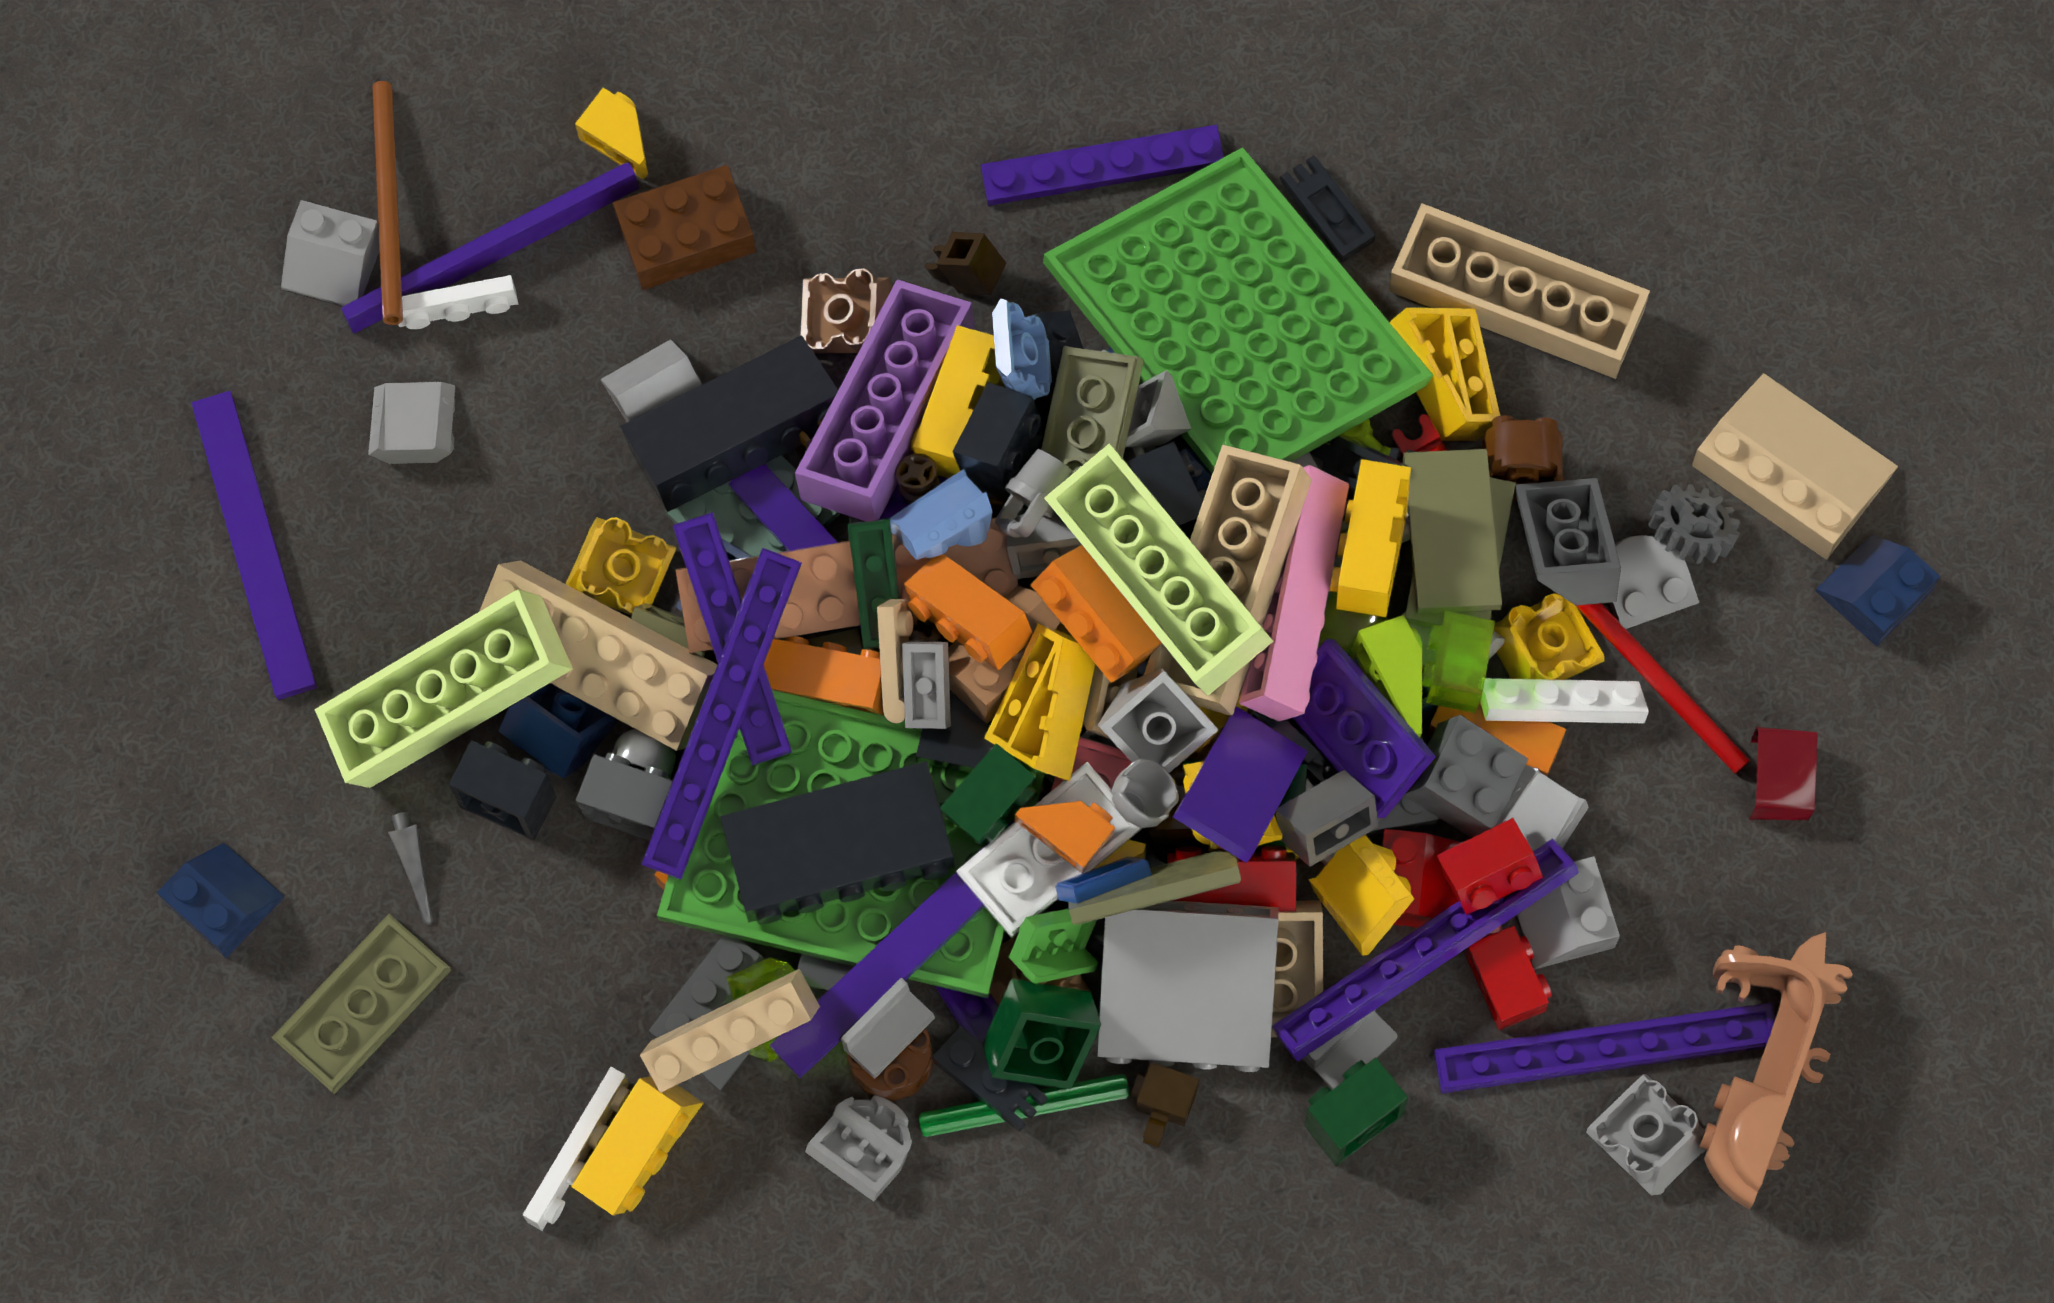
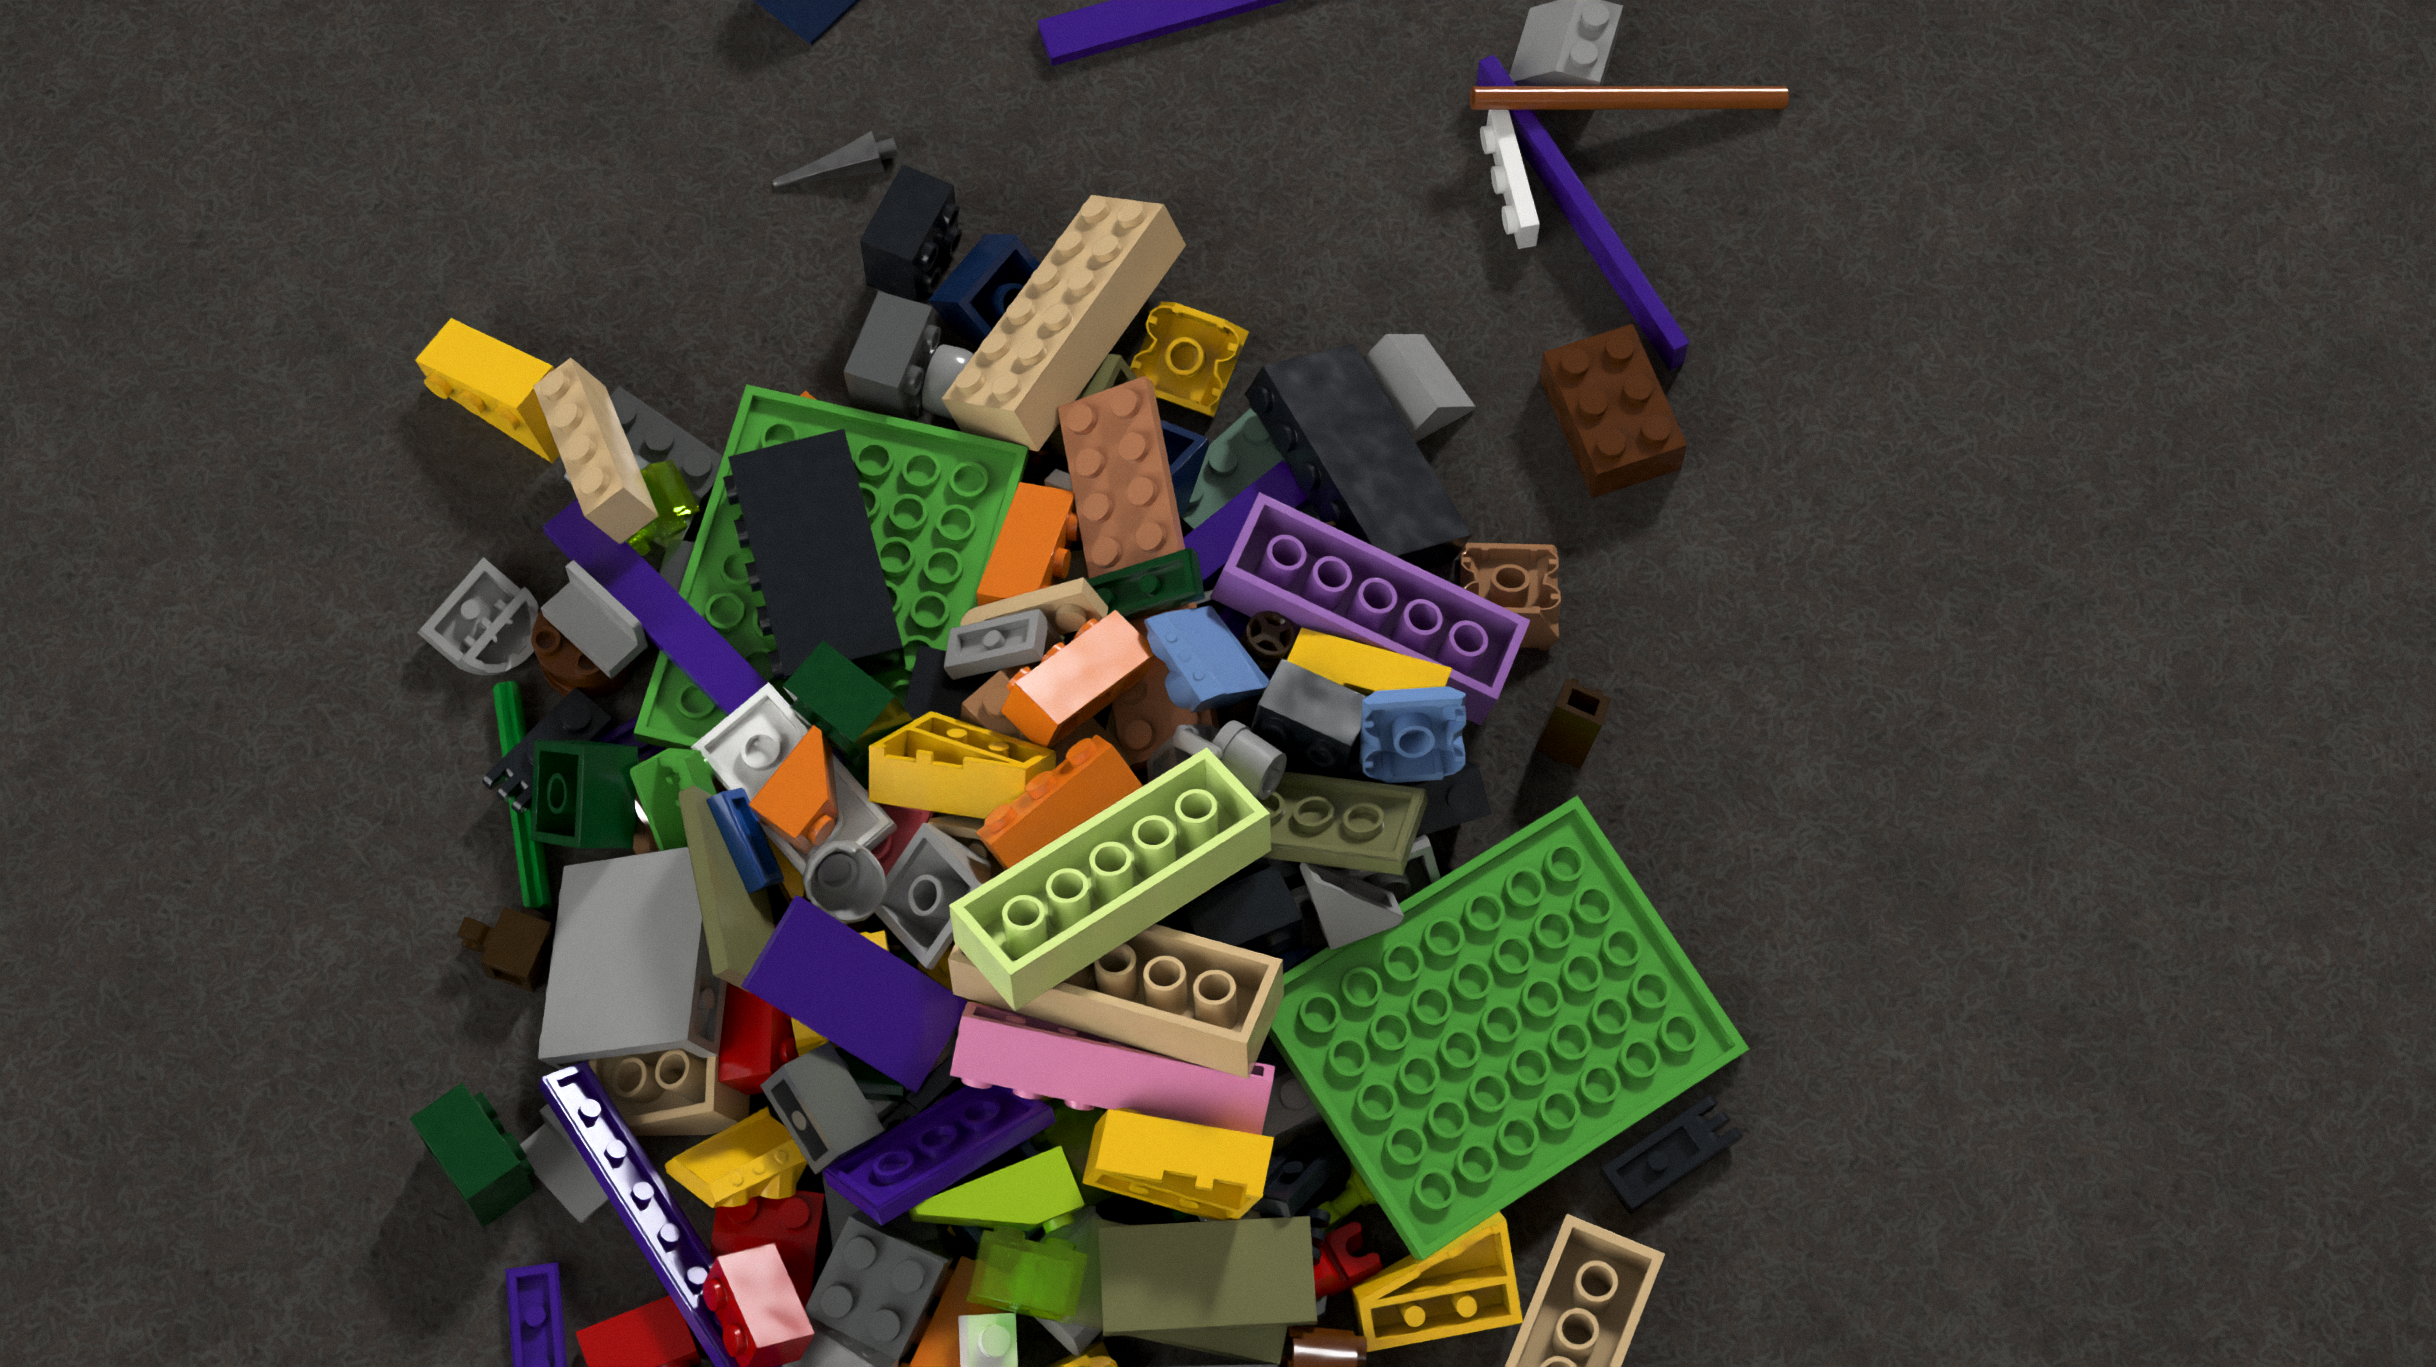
camera: 85 degrees right, 5 degrees down
(361, 1003) = (684, 121): olive tile -> none
(412, 422) = (1365, 142): light grey slope -> none
(443, 689) = (1020, 161): yellowish green brick -> none
(589, 1130) = (443, 301): white plate -> none
(614, 130) = (1735, 337): yellow slope -> none
(719, 605) = (1062, 439): dark purple tile -> none
(721, 714) = (972, 430): dark purple tile -> none
(1101, 165) = (1722, 887): dark purple plate -> none

